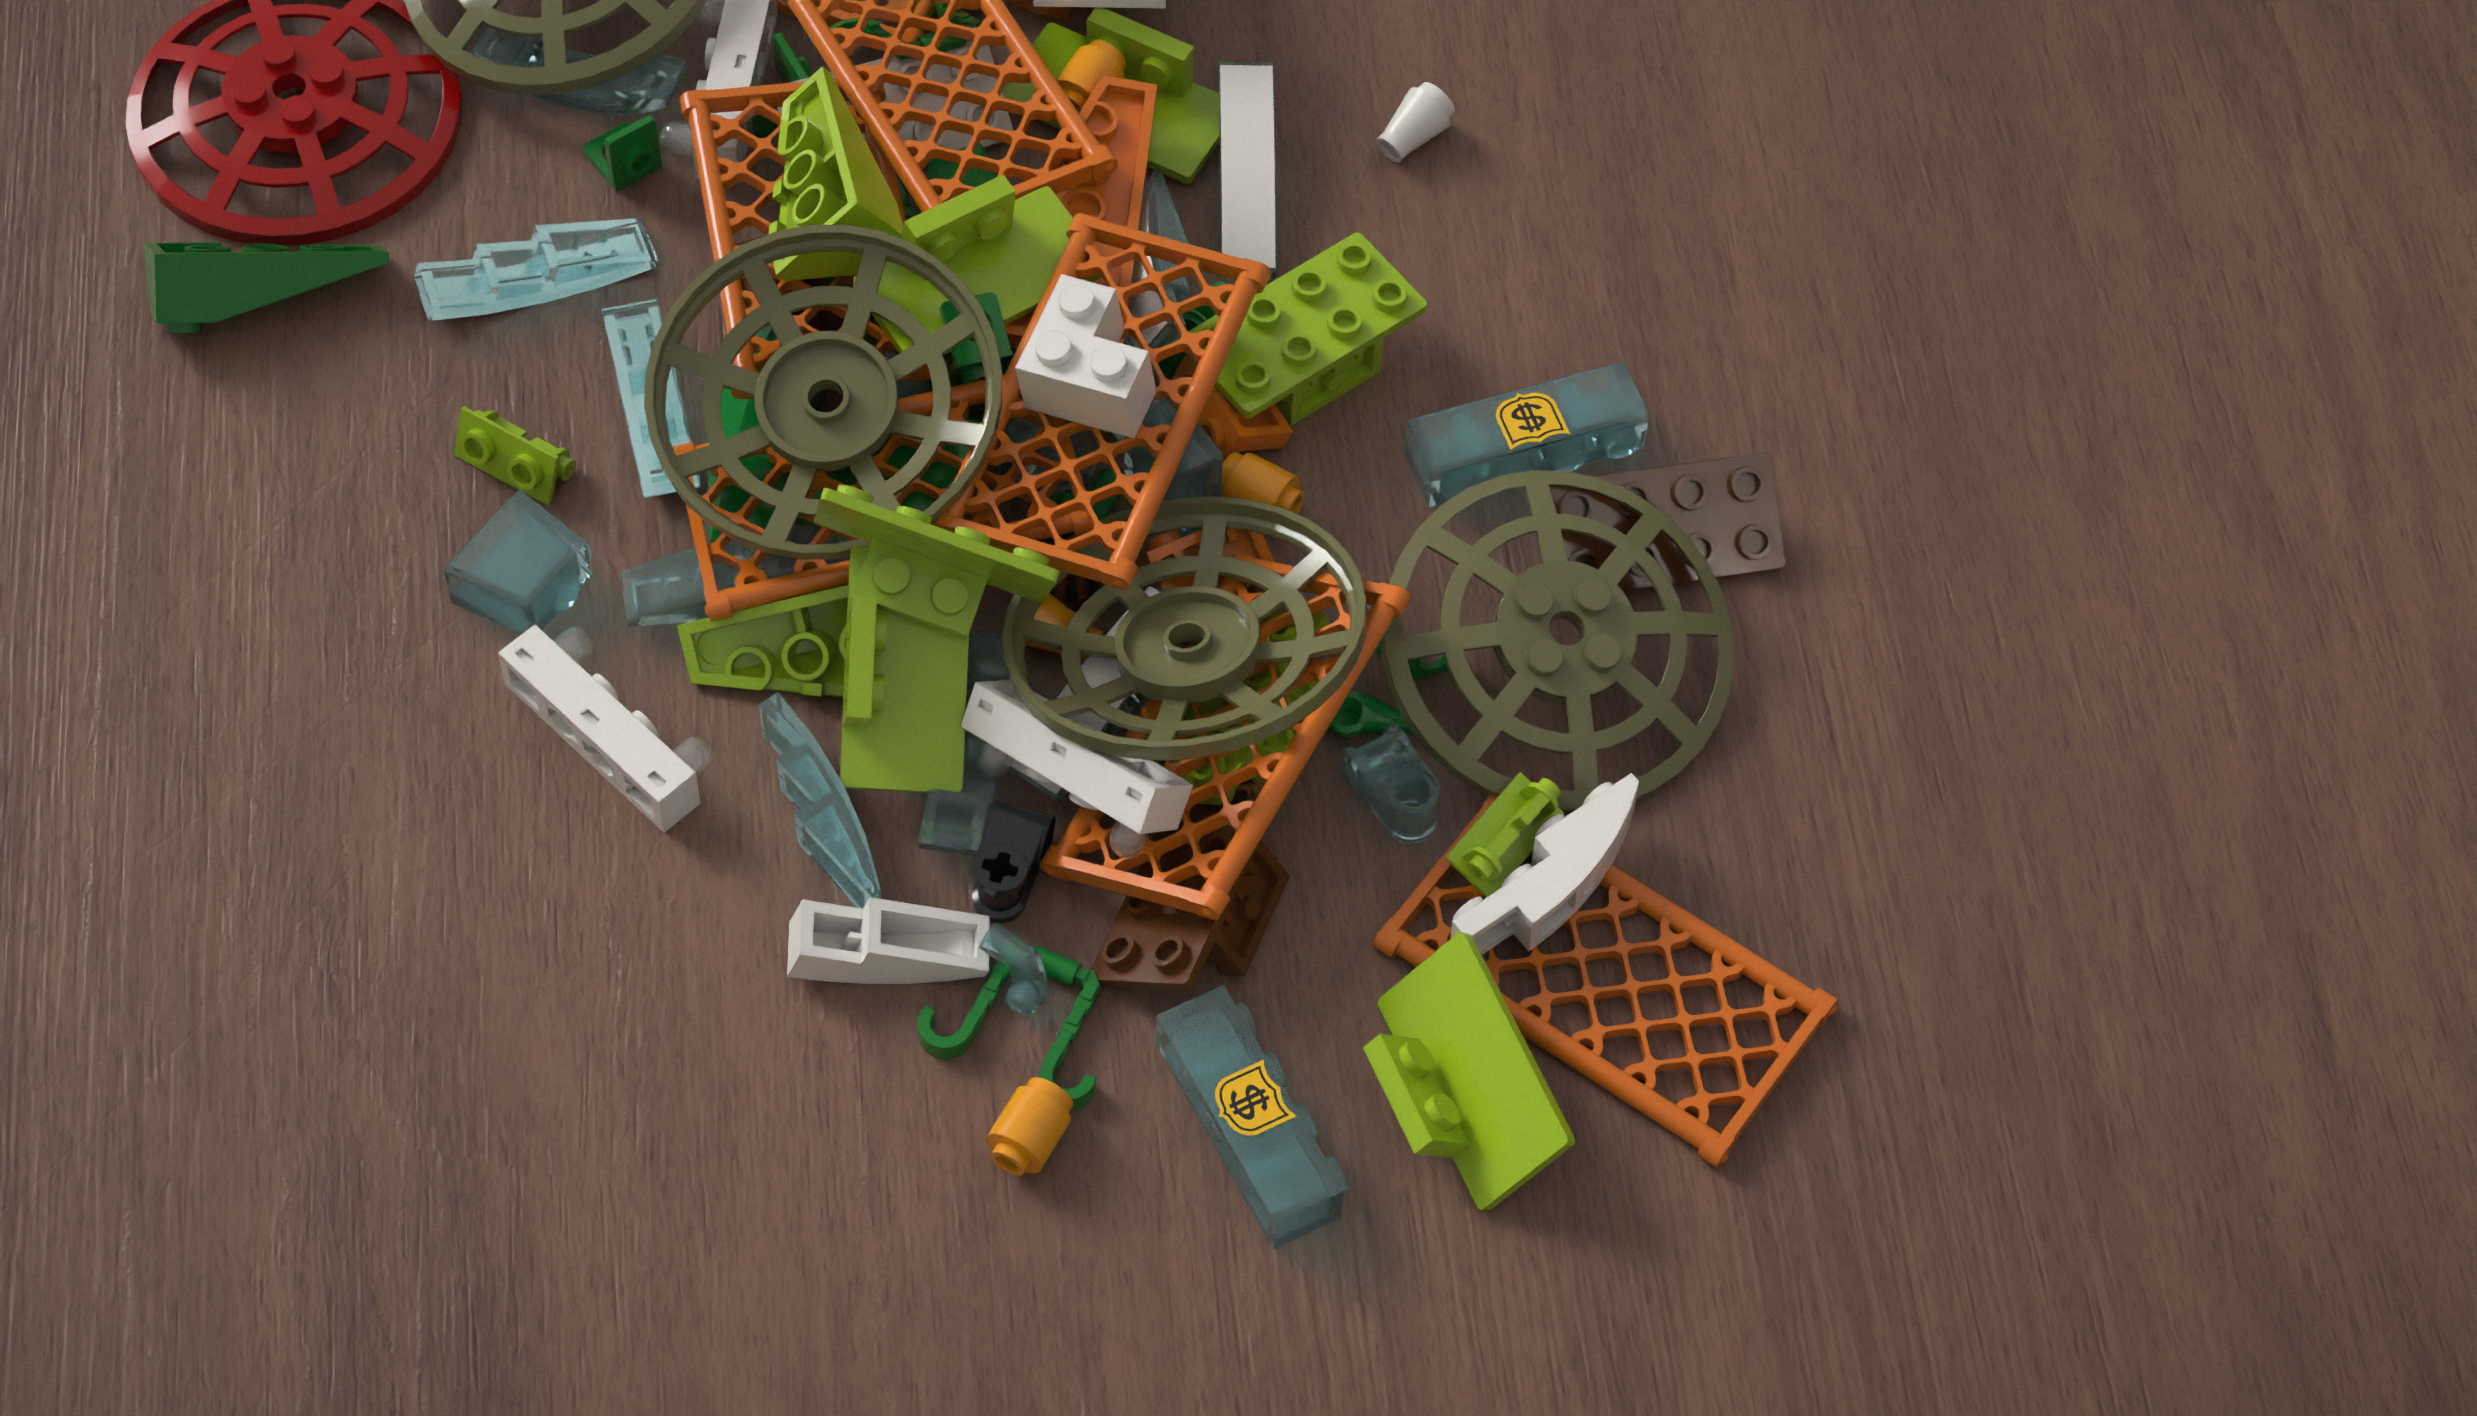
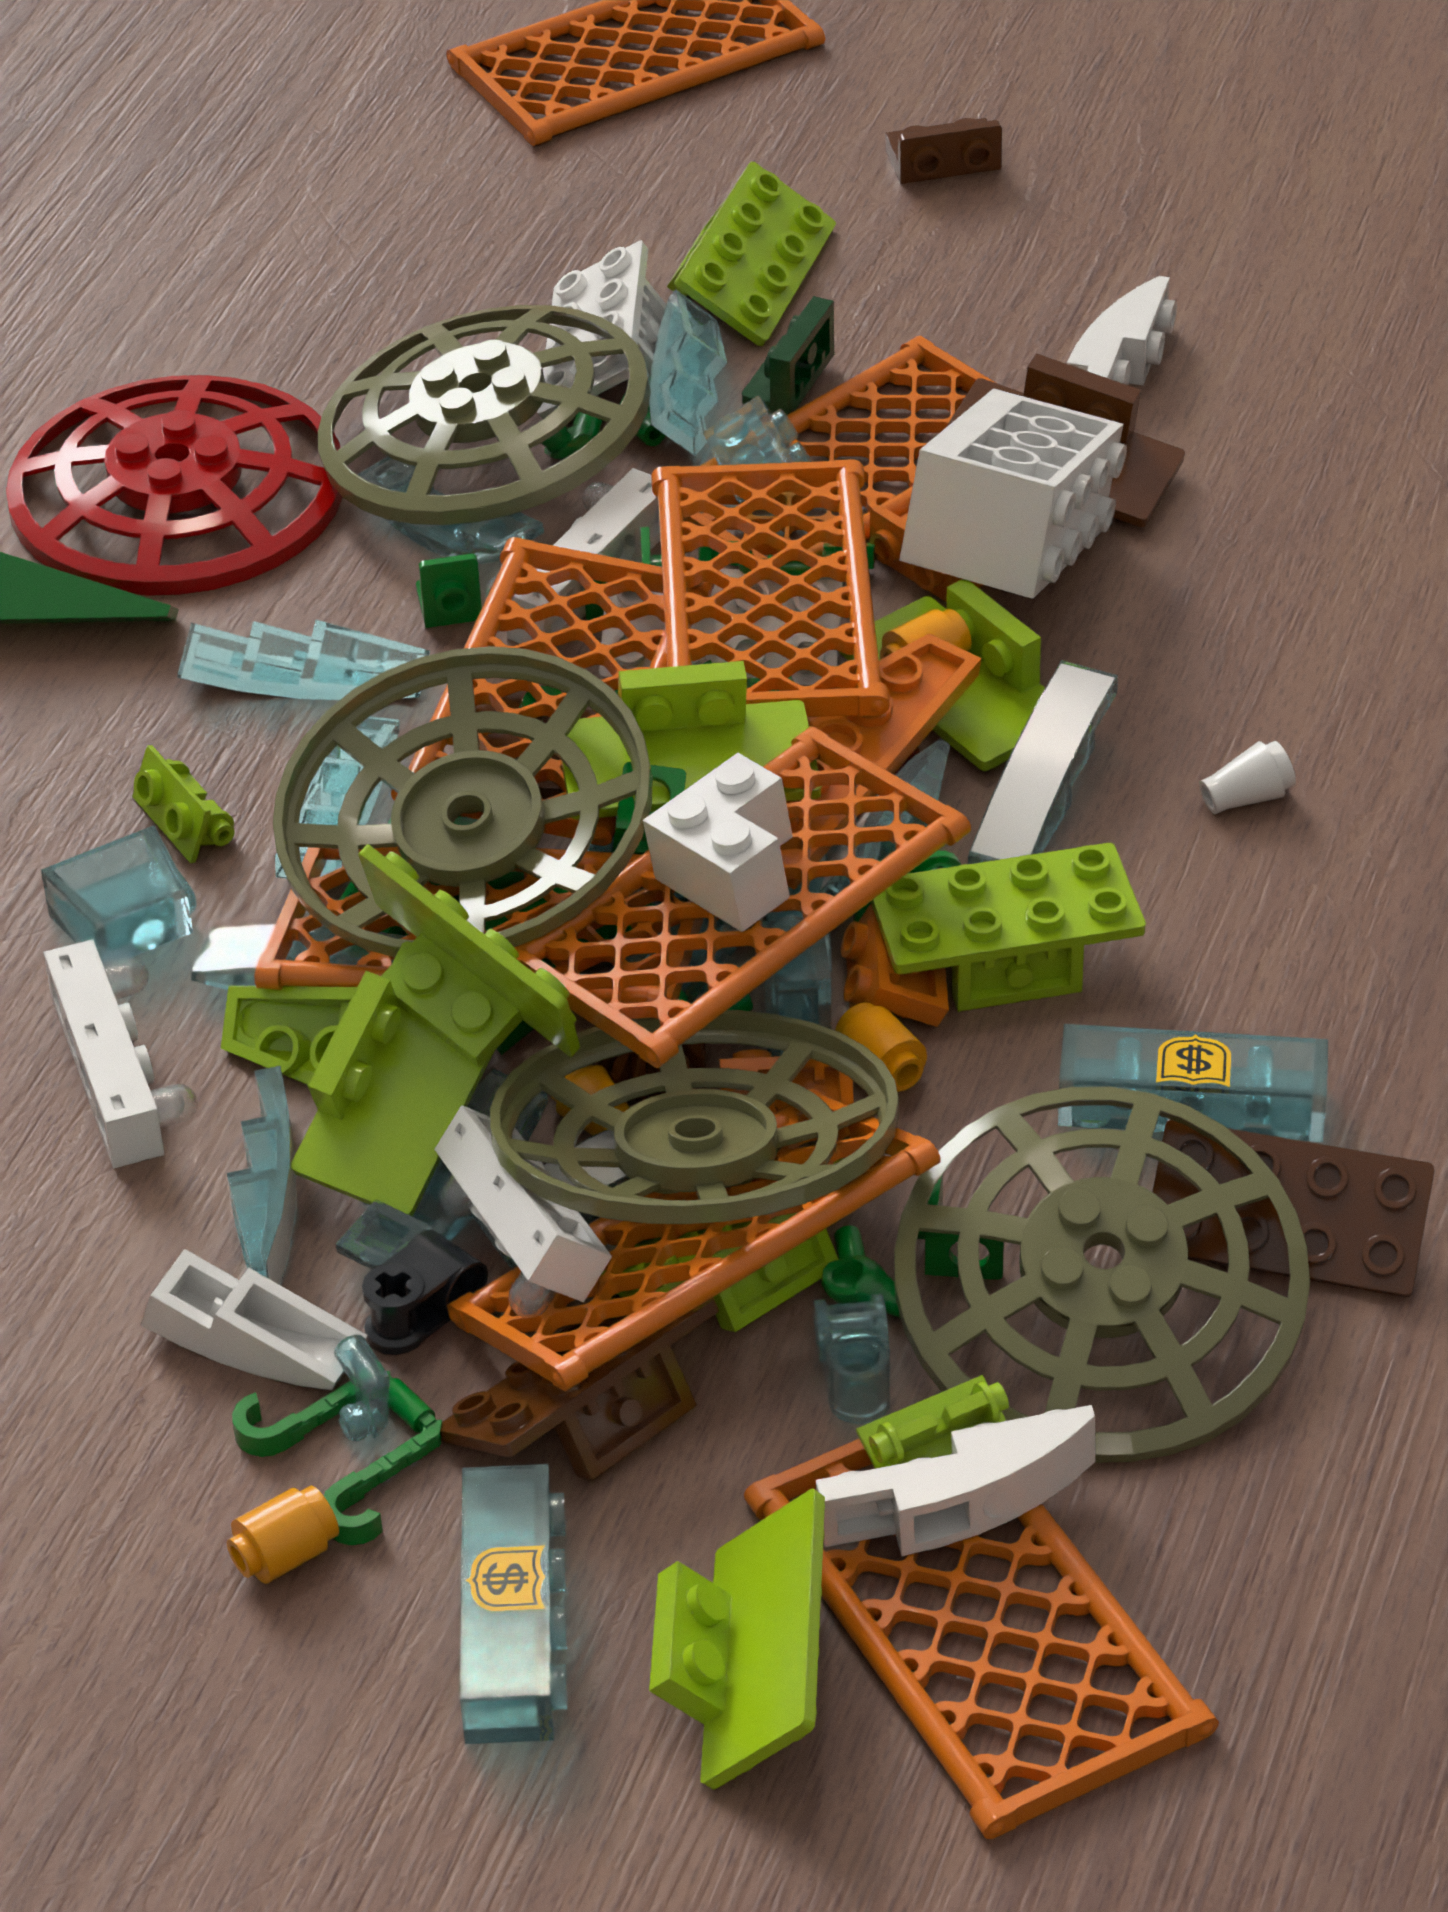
camera: 30 degrees right, 15 degrees down
(827, 178) = (599, 634): lime wedge -> none

